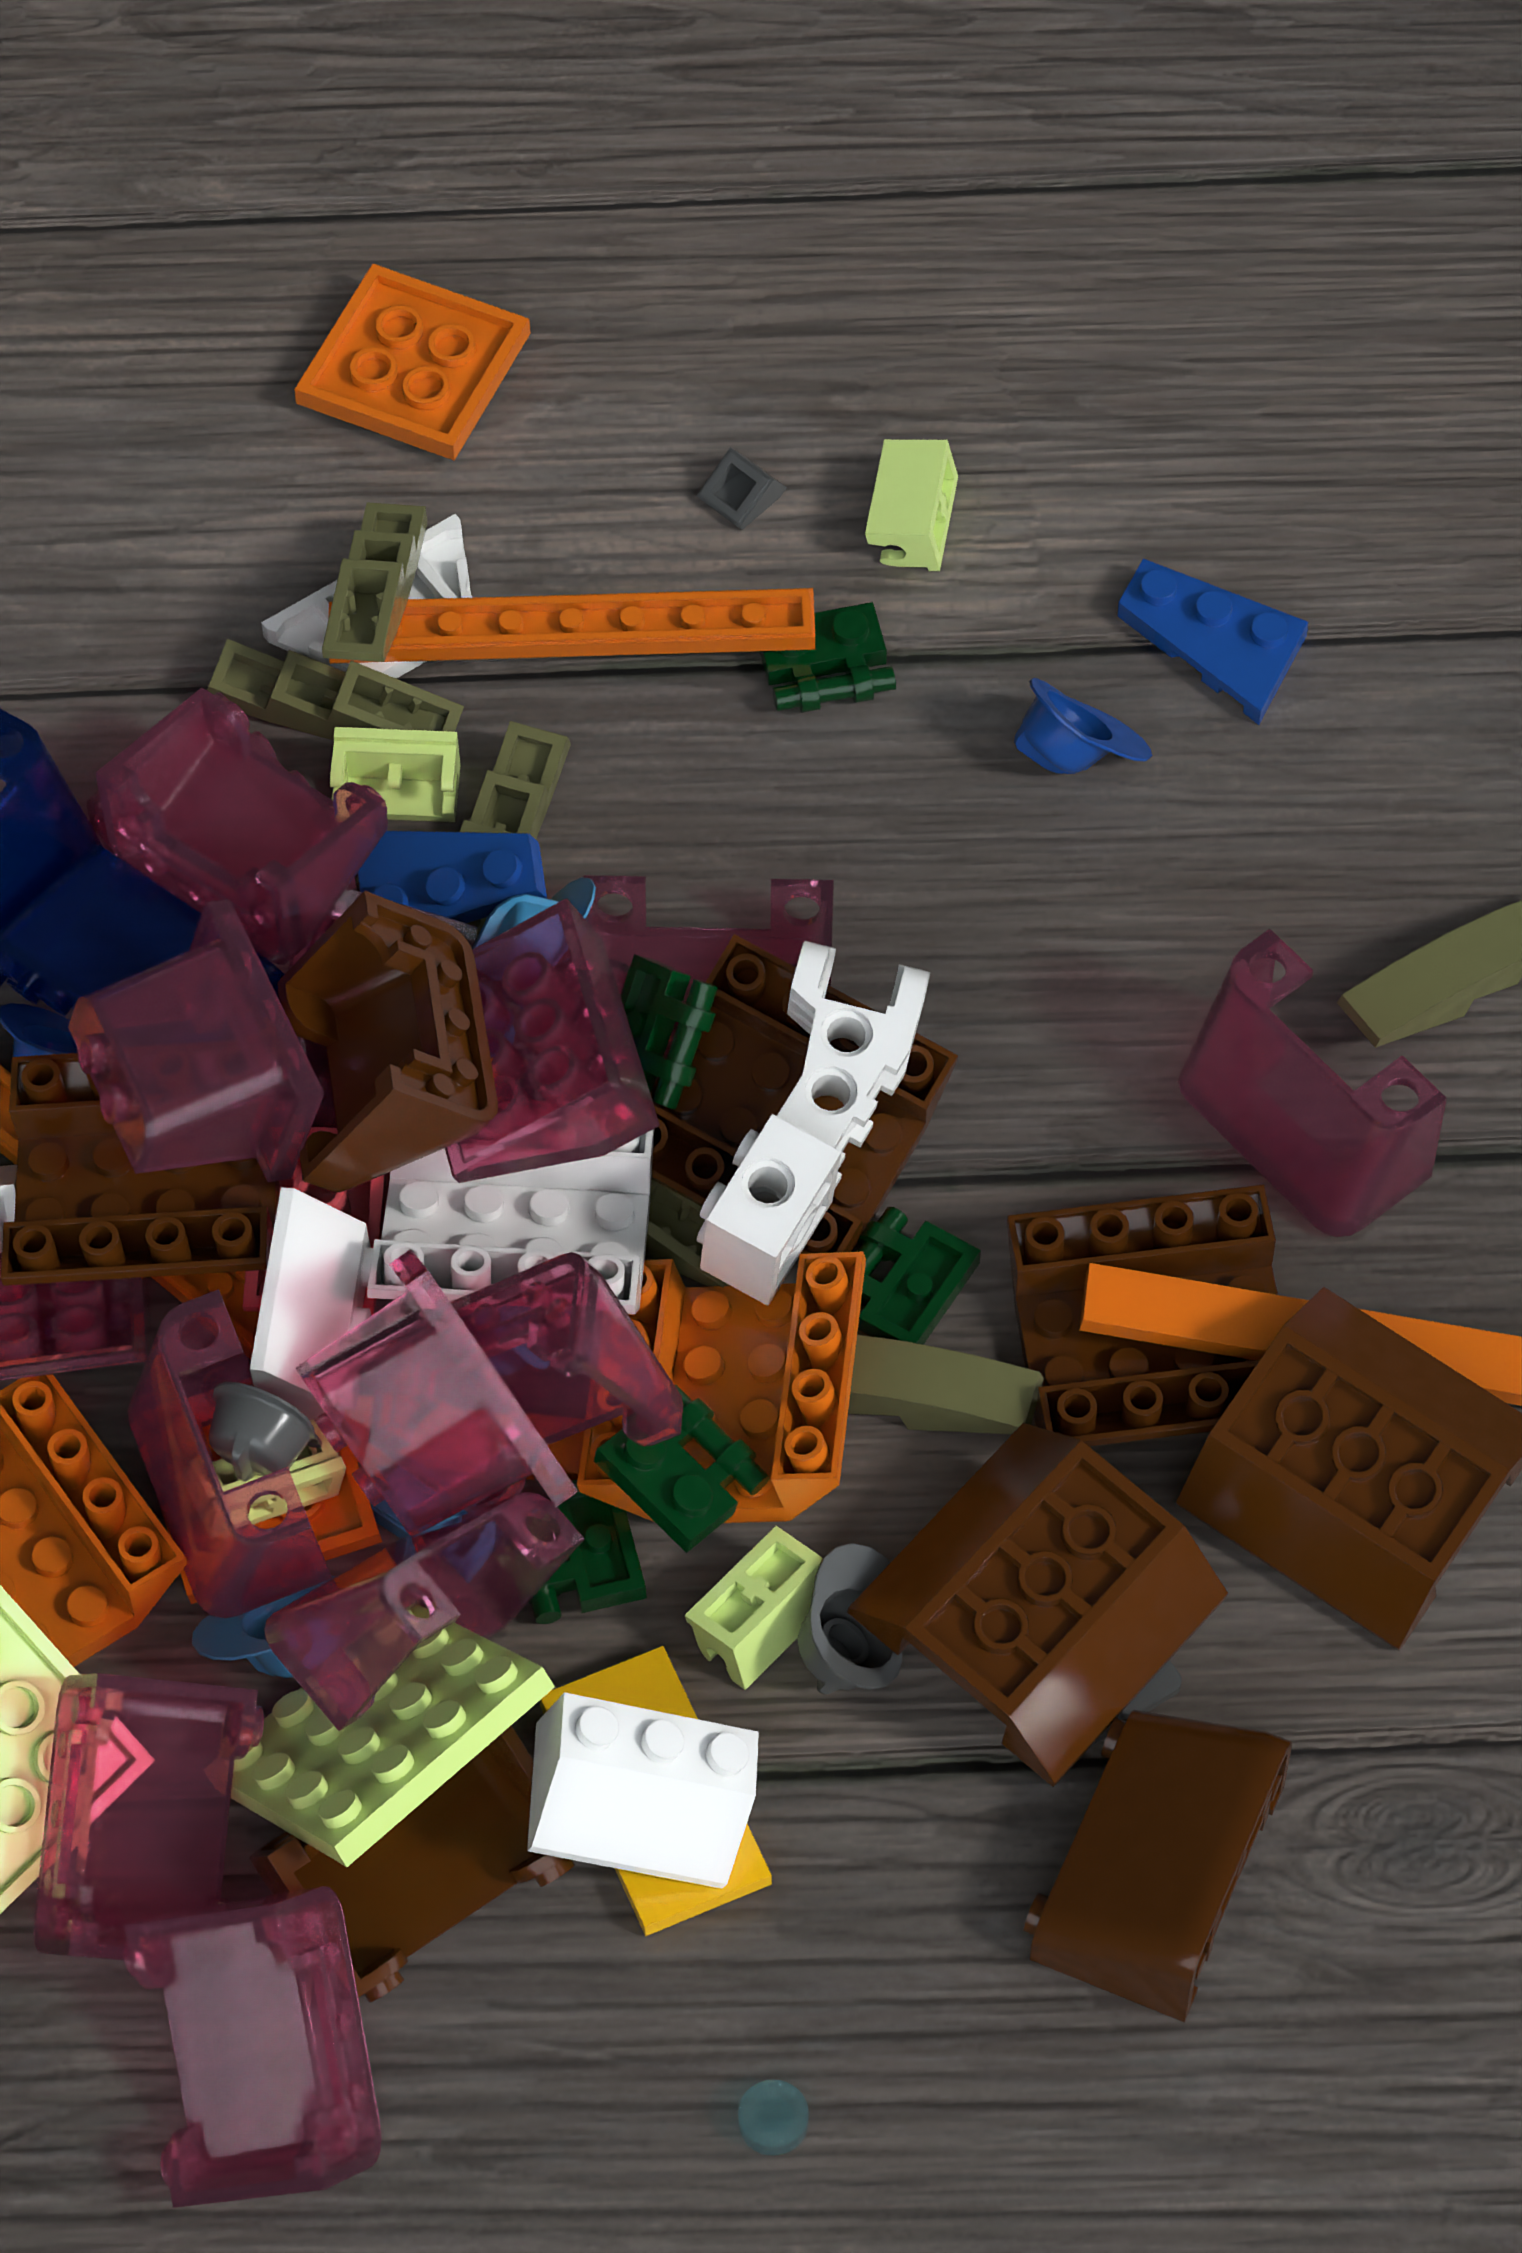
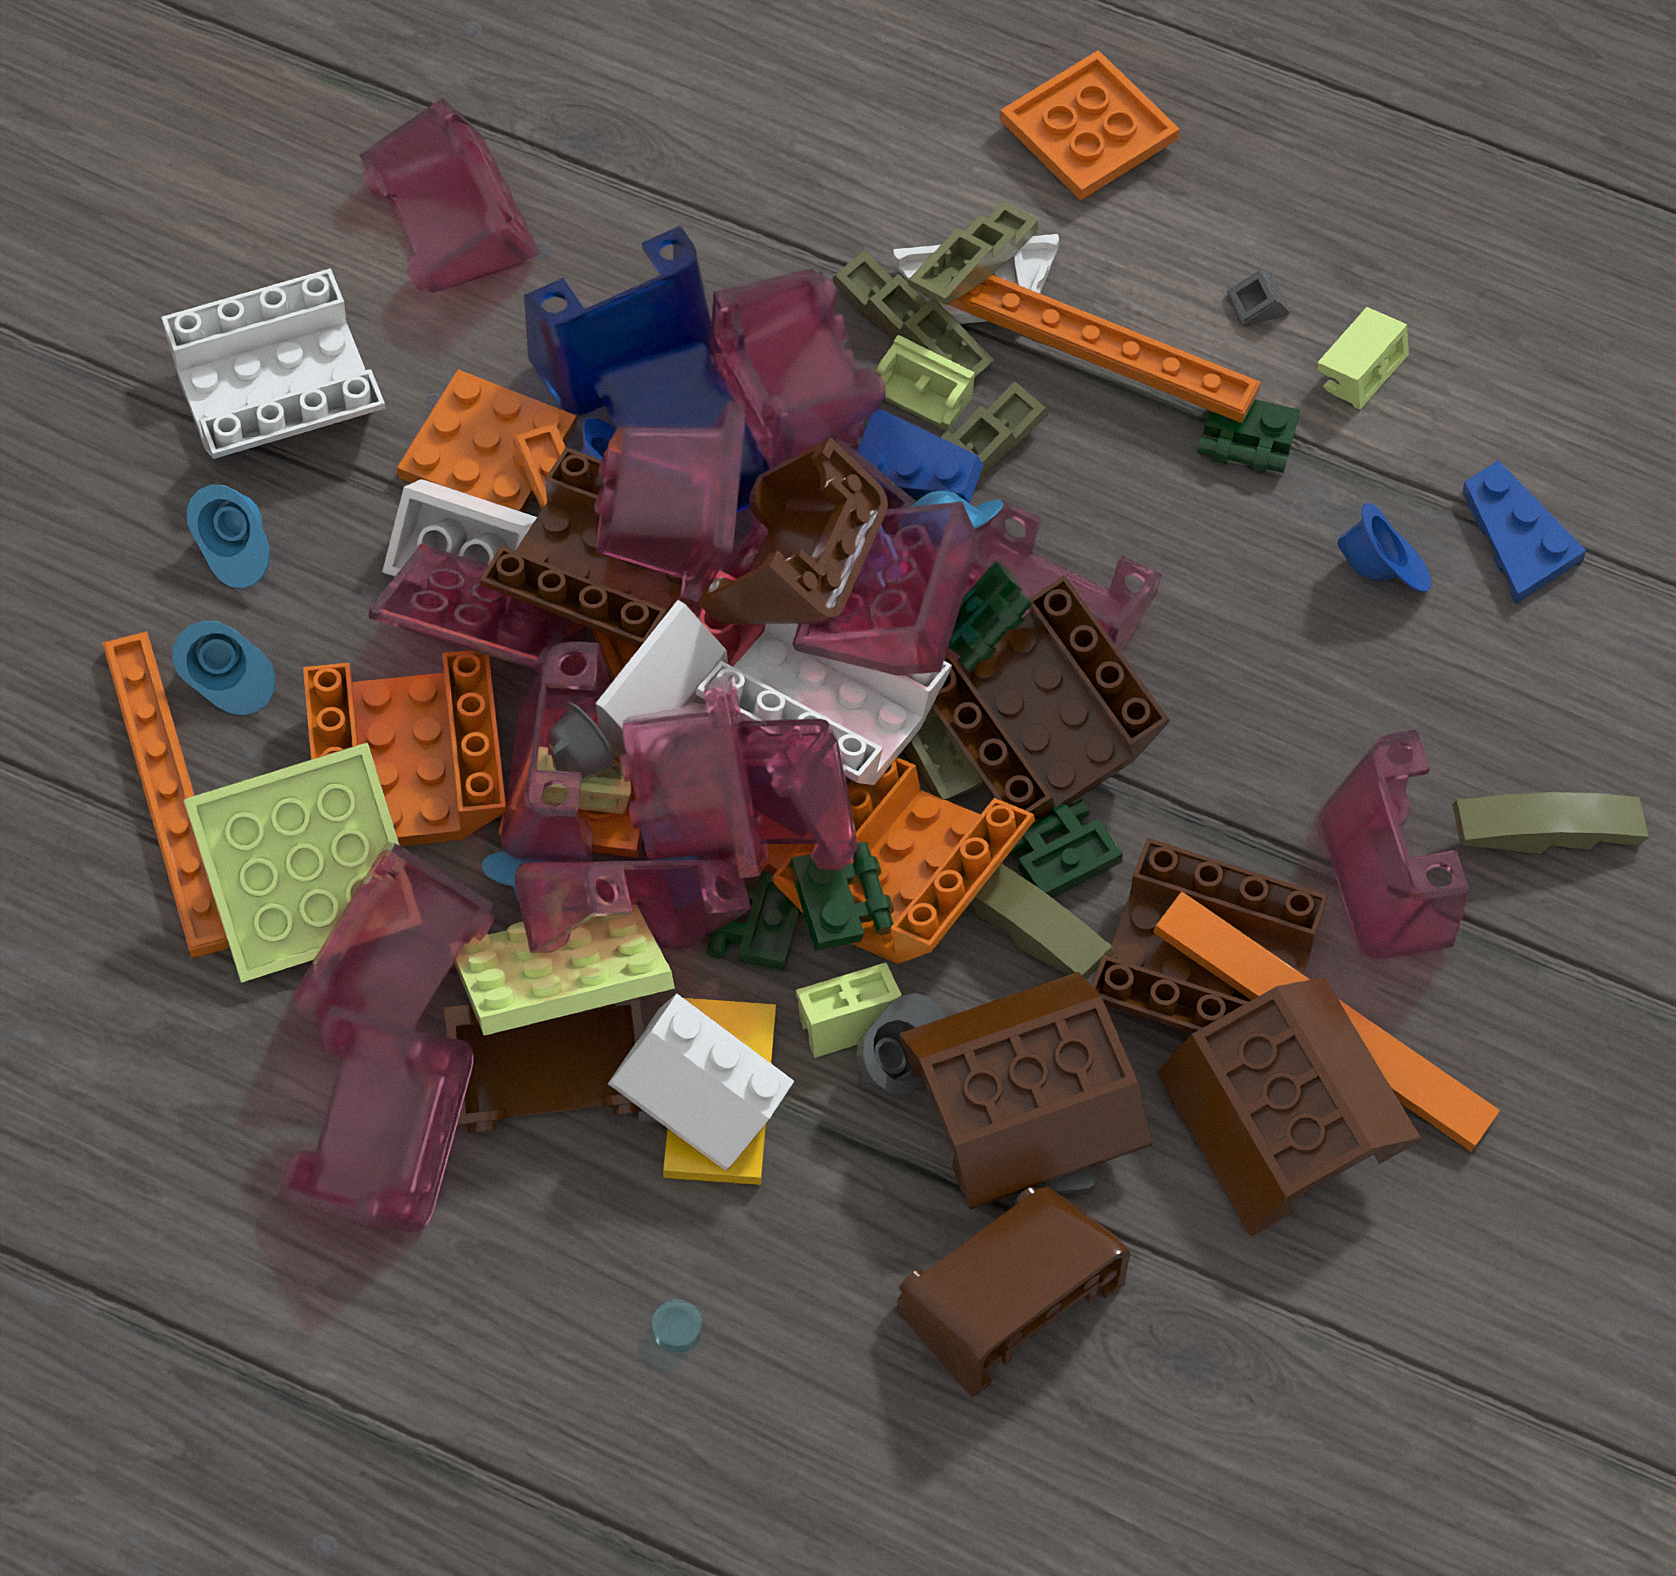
camera: 25 degrees right, 0 degrees up
(792, 1165) = (1009, 737): white brick -> none

